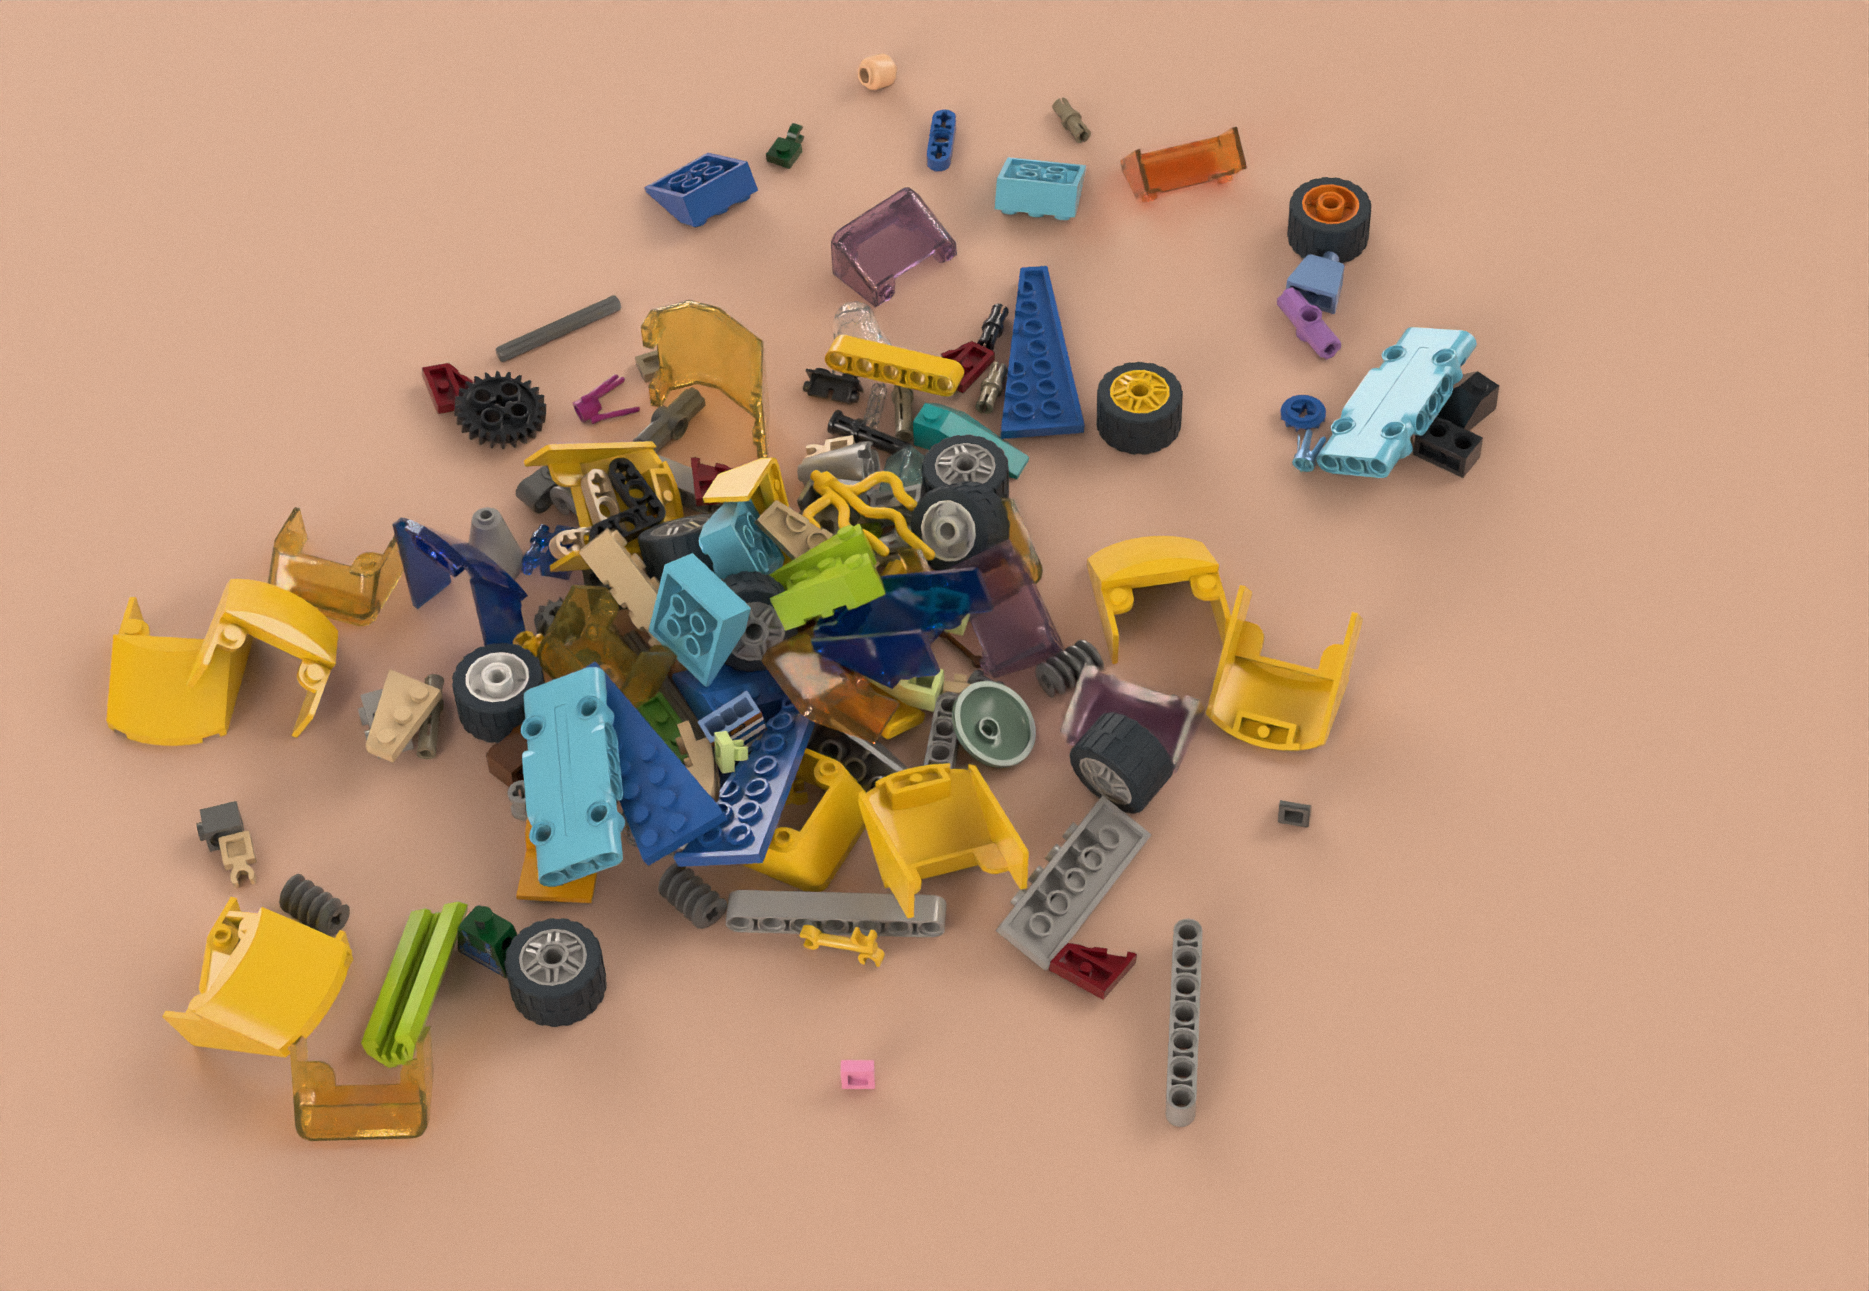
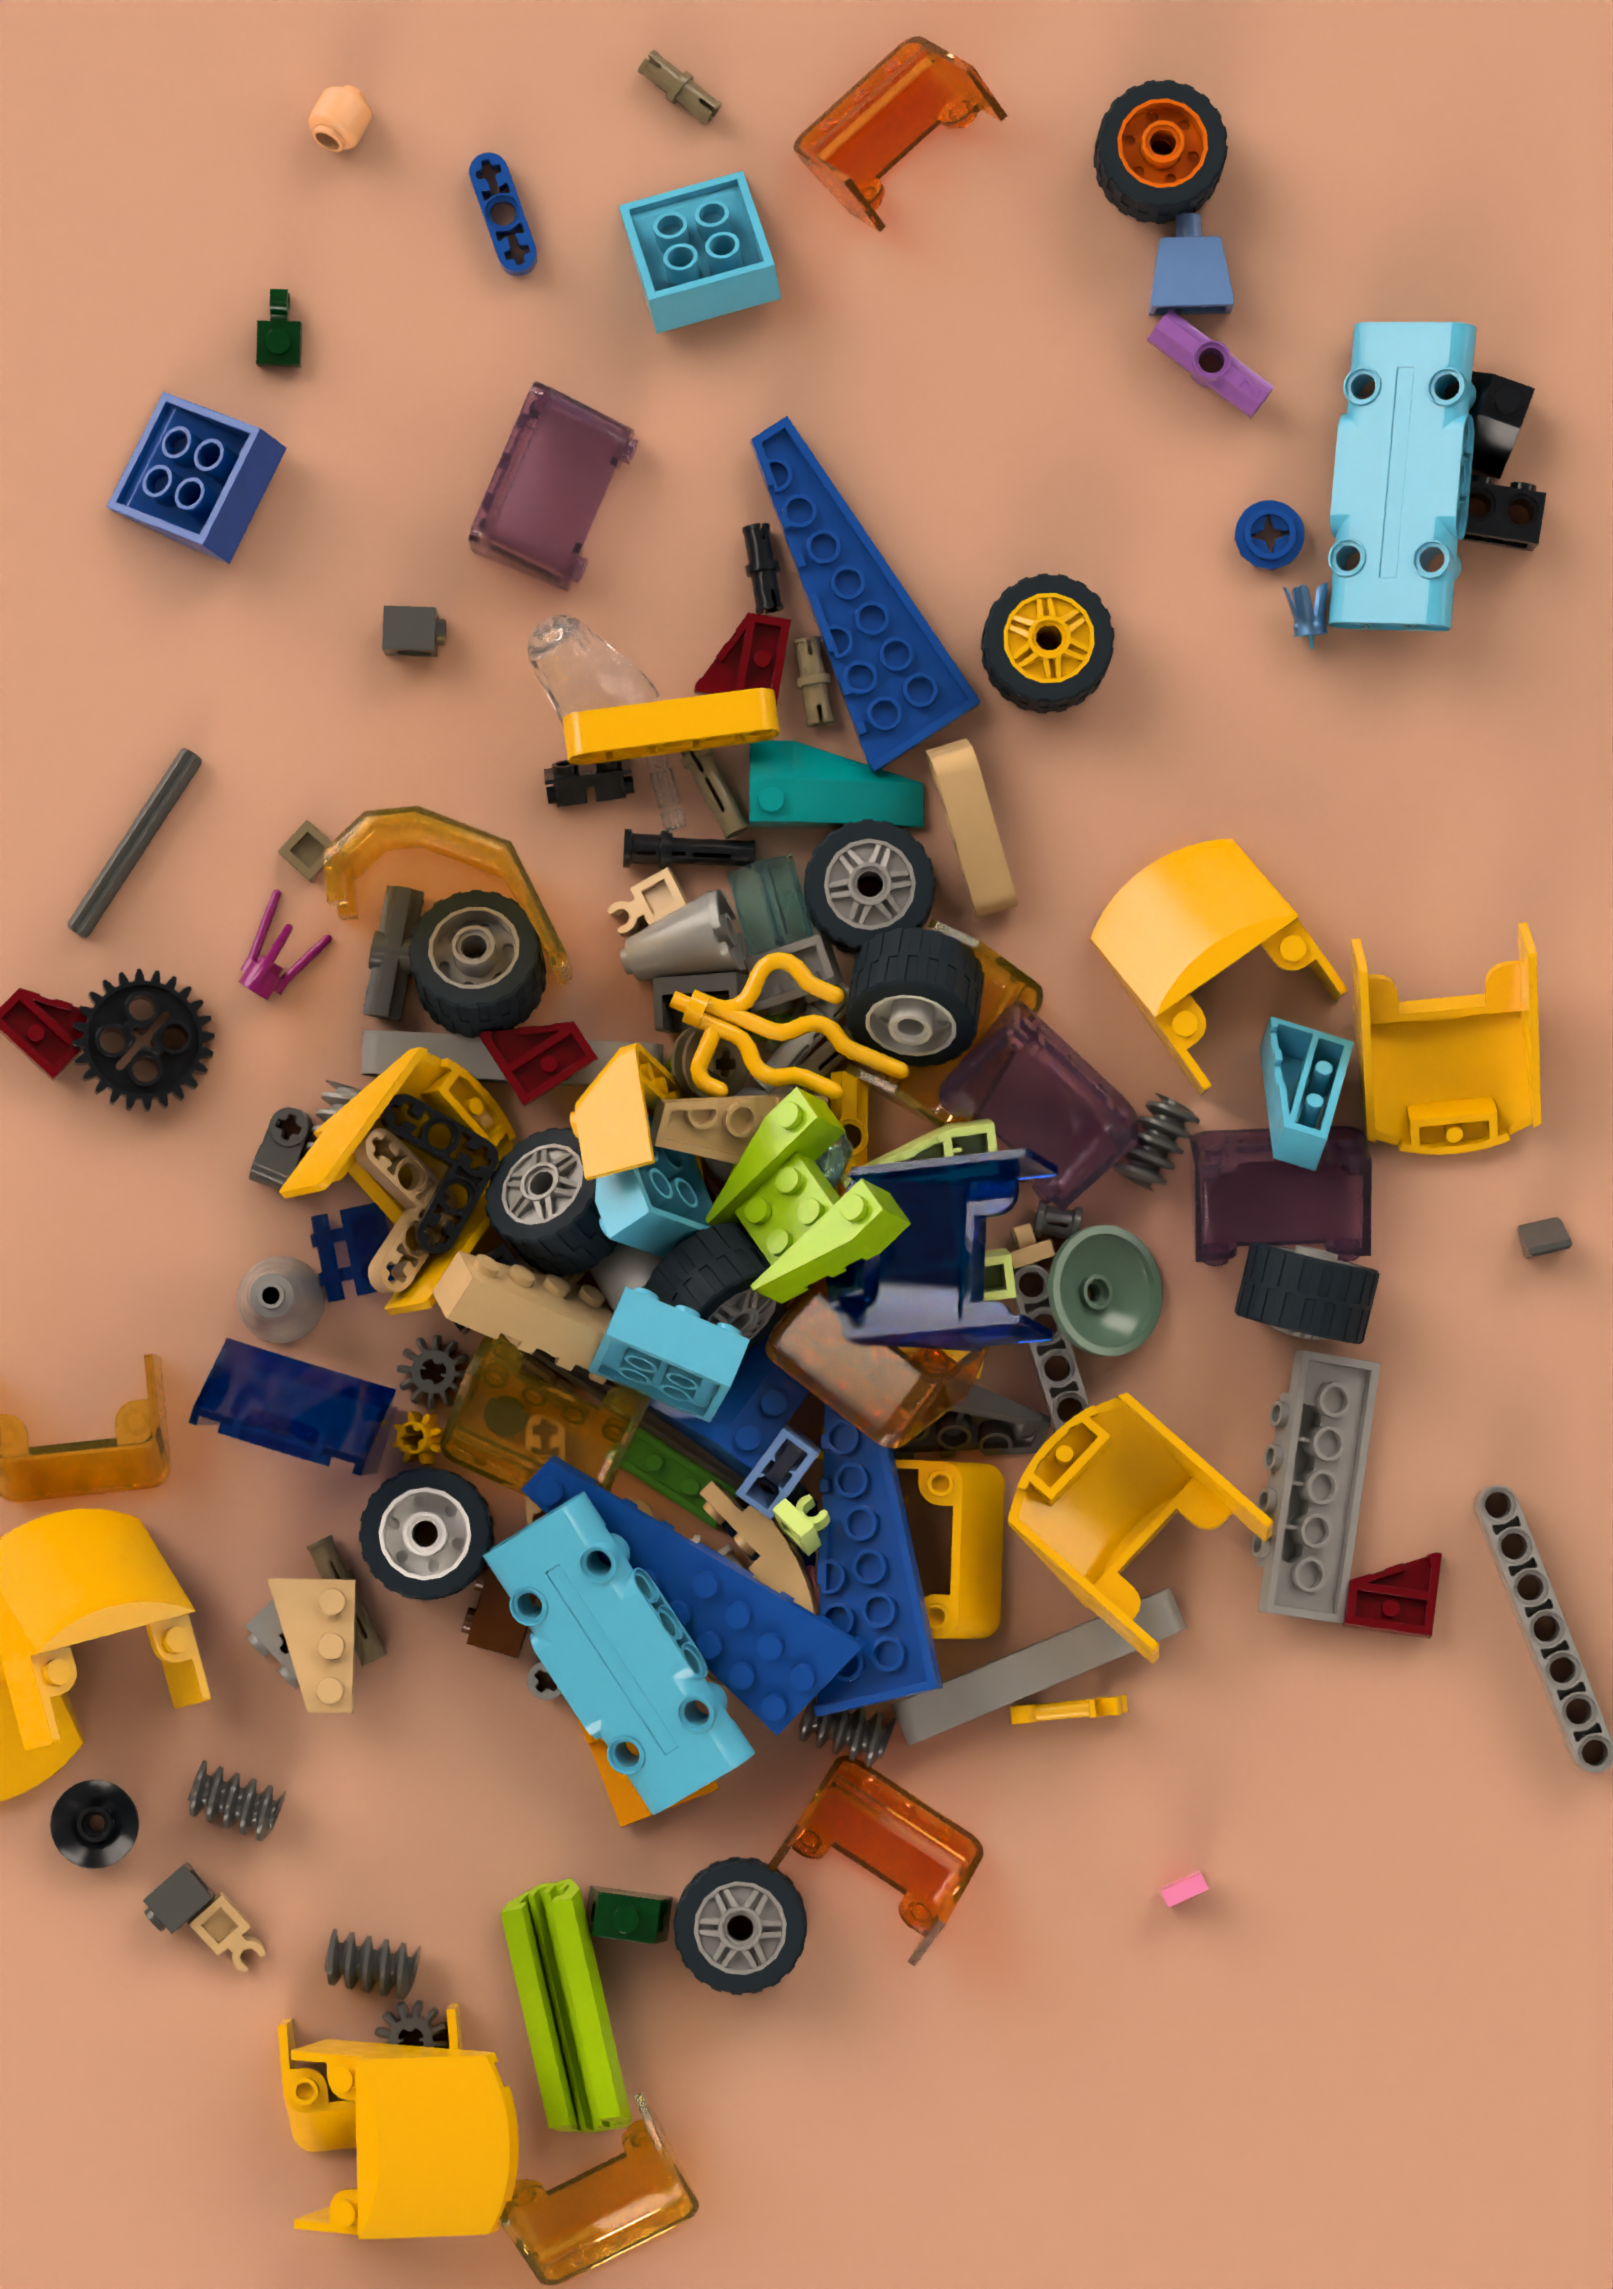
camera: 30 degrees left, 35 degrees up
(197, 759) = (72, 1830): none -> black dish
(292, 788) = (234, 1802): none -> dark grey piece
(674, 960) = (891, 1838): none -> clear orange windscreen
(712, 428) = (477, 963): none -> black wheel
(774, 287) = (412, 631): none -> dark grey brick
(1044, 476) = (972, 827): none -> tan beam
(1178, 664) = (1302, 1088): none -> medium azure wedge

